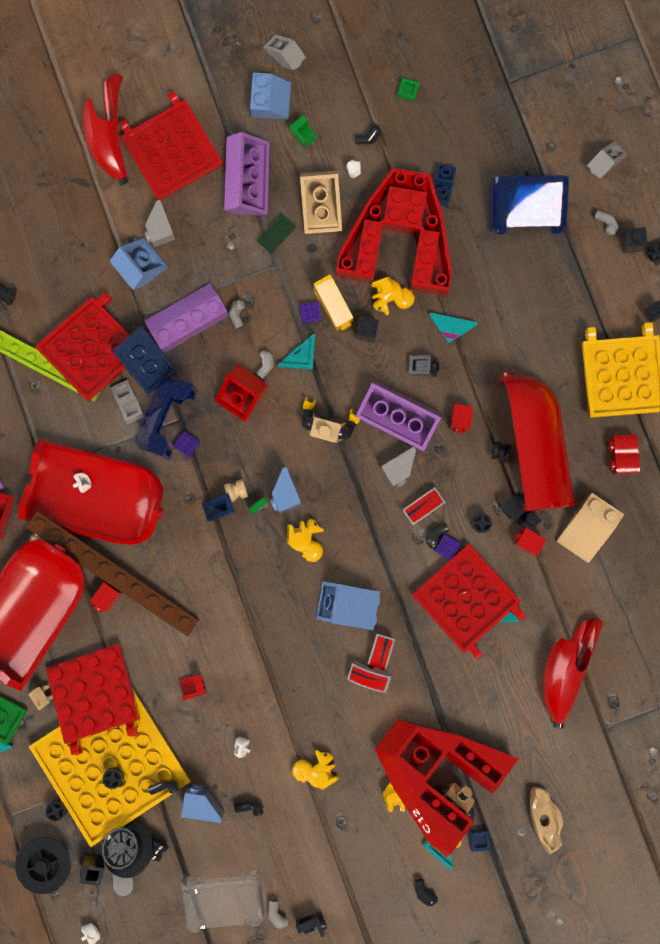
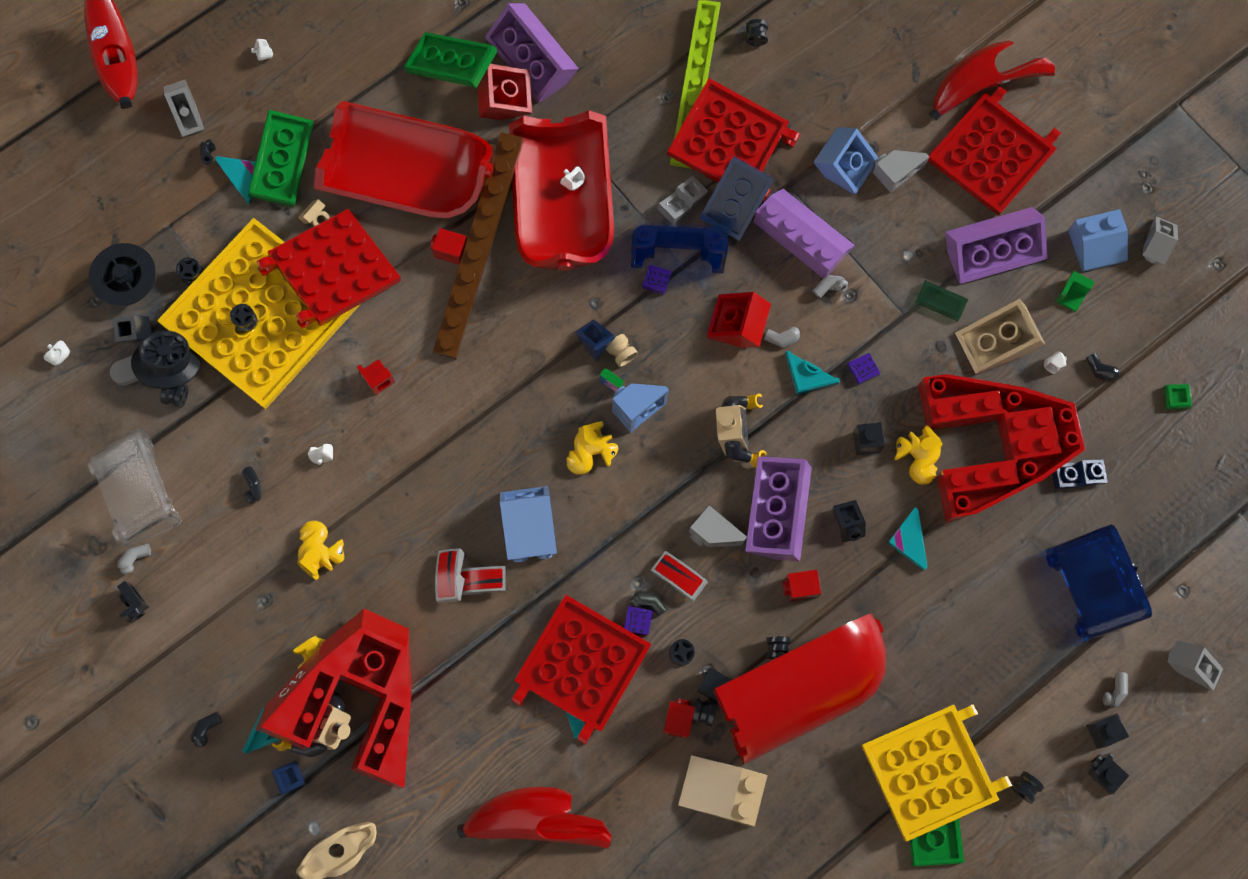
camera: 70 degrees right, 10 degrees down
(162, 785) = (251, 375): black arm -> none
(201, 805) = (240, 425): medium blue slope -> none
(333, 303) = (884, 387): yellow slope -> none
(624, 454) = (830, 806): red brick -> none

